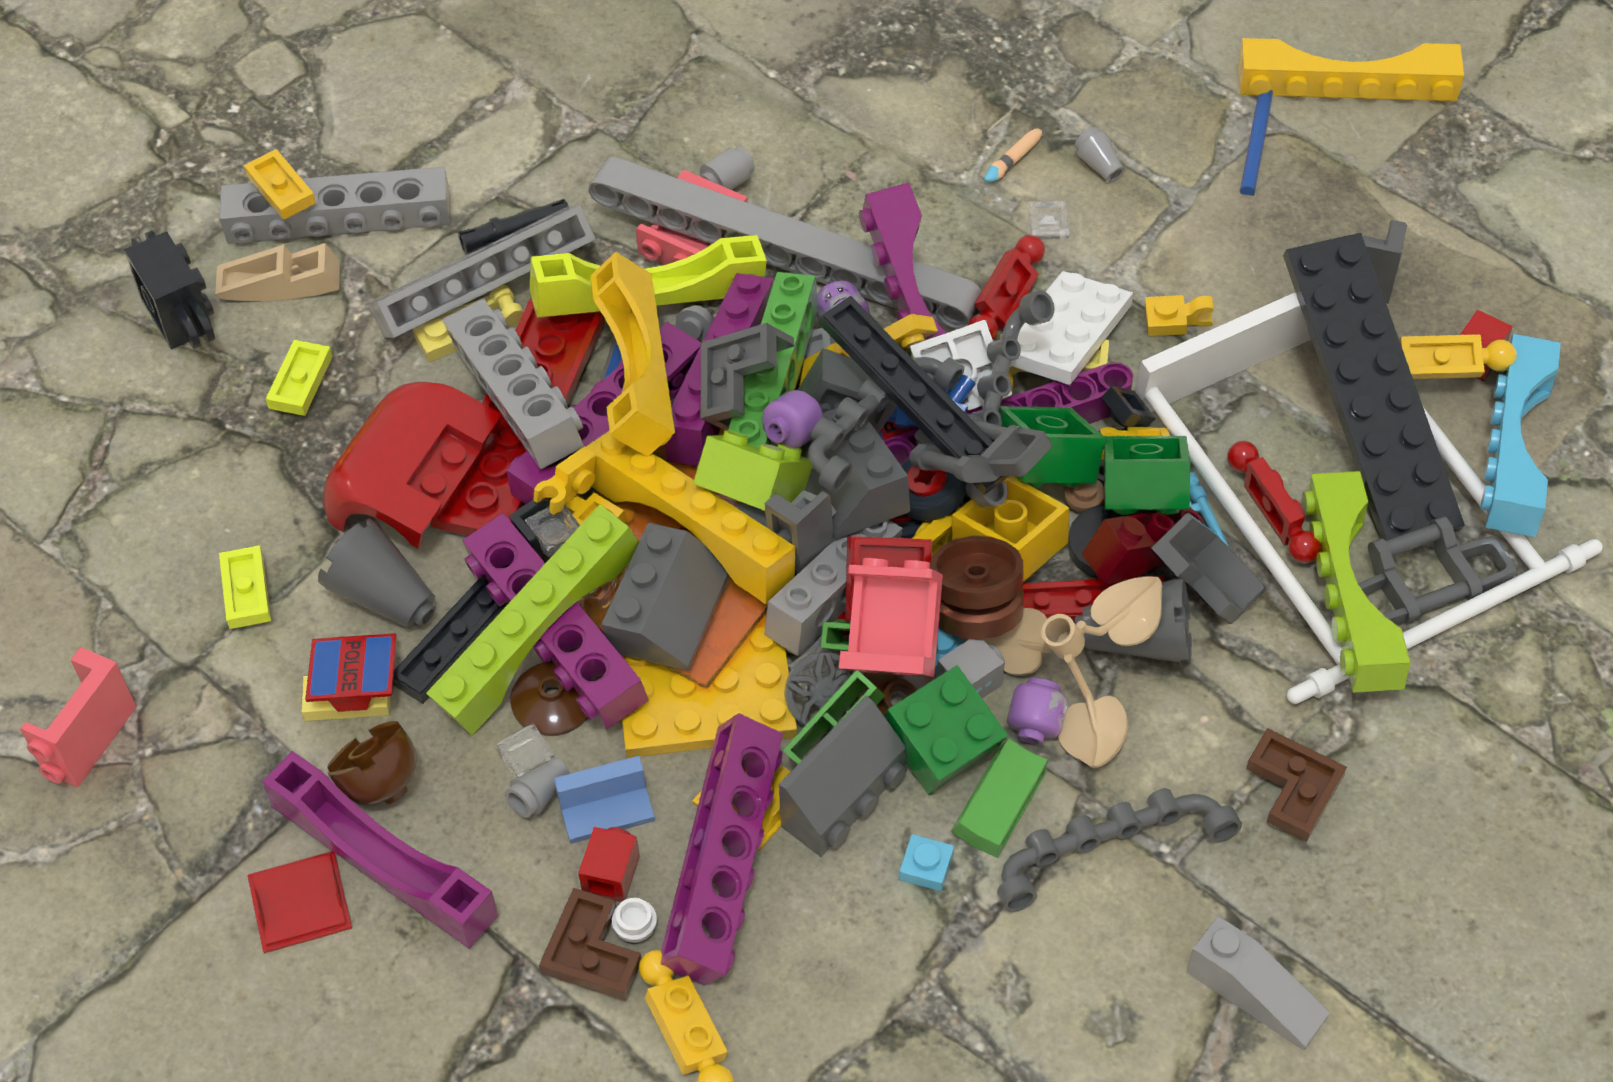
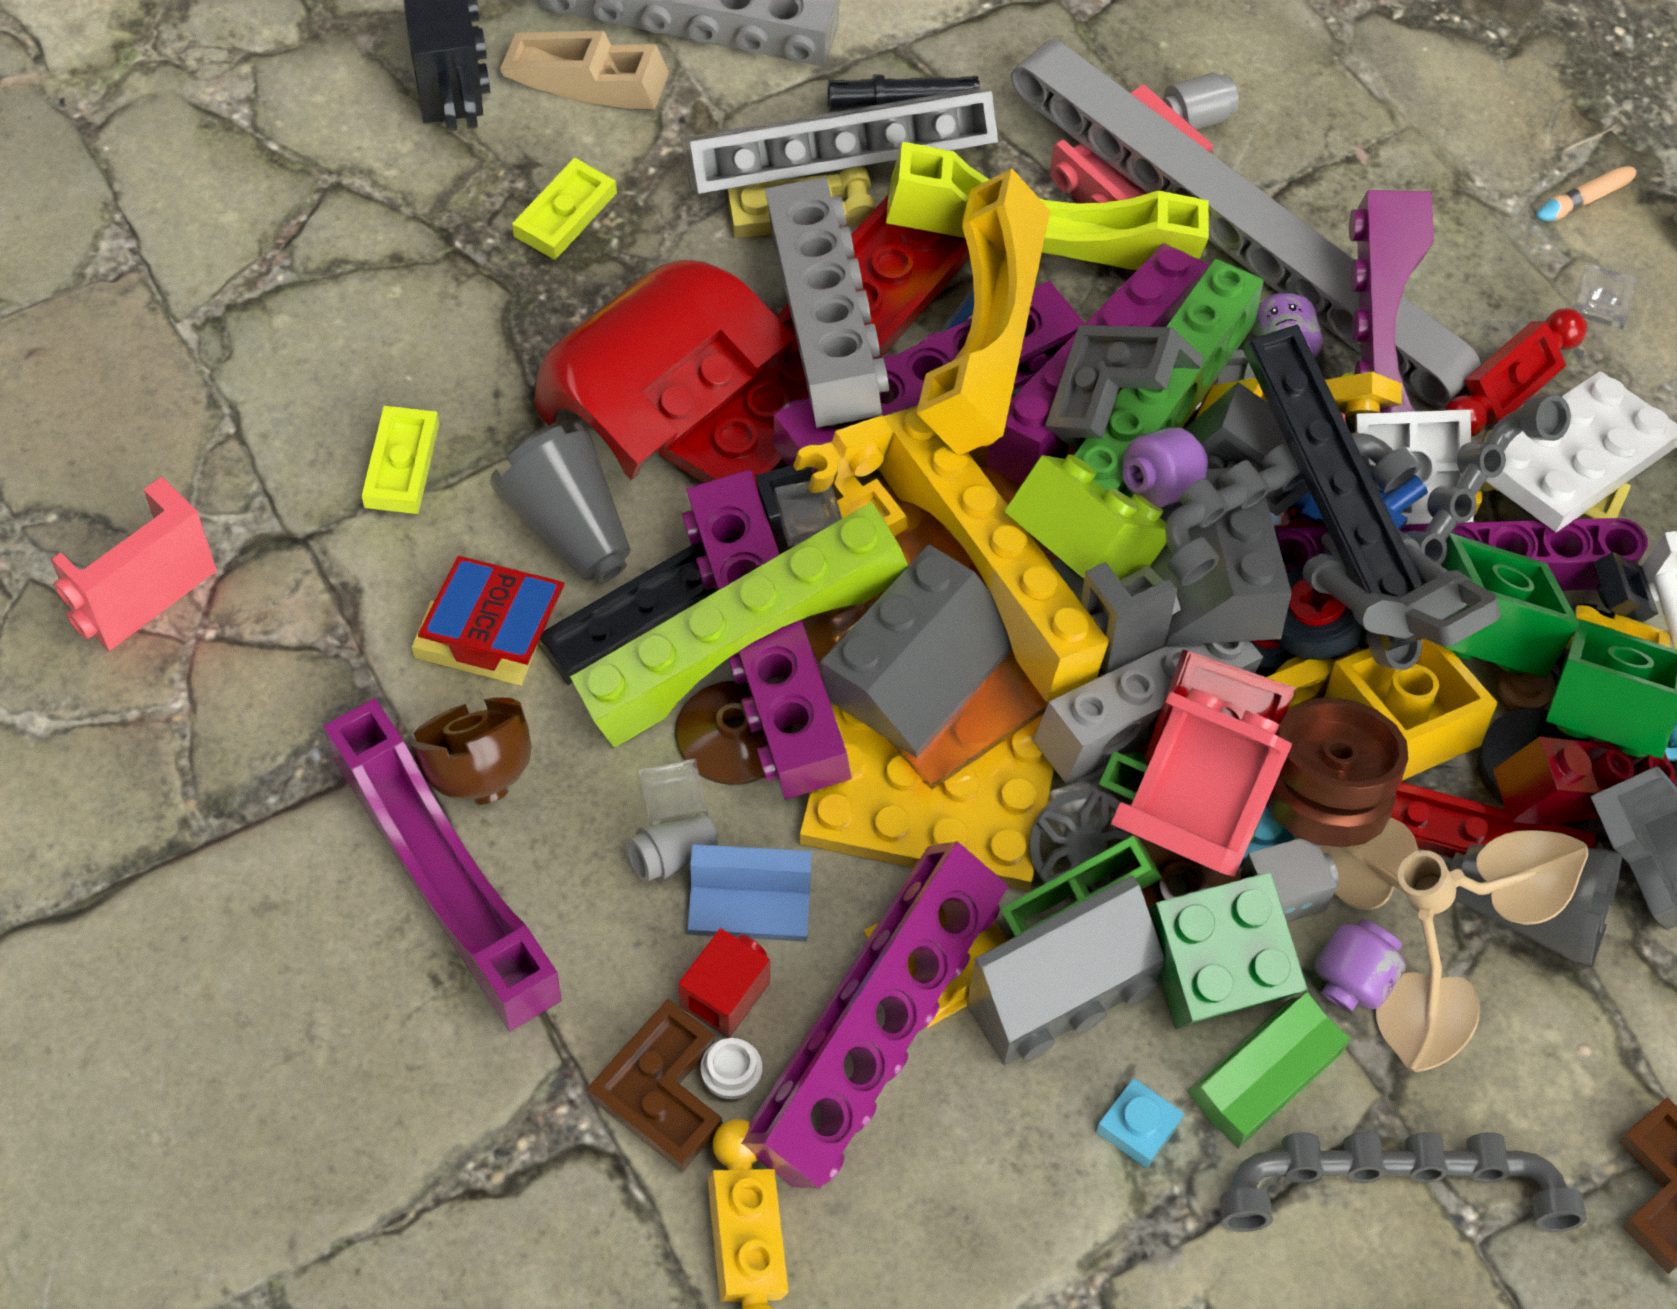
camera: 15 degrees right, 5 degrees up
(299, 902) = (322, 894): red piece -> none
(694, 321) = (1087, 291): light grey plate -> none

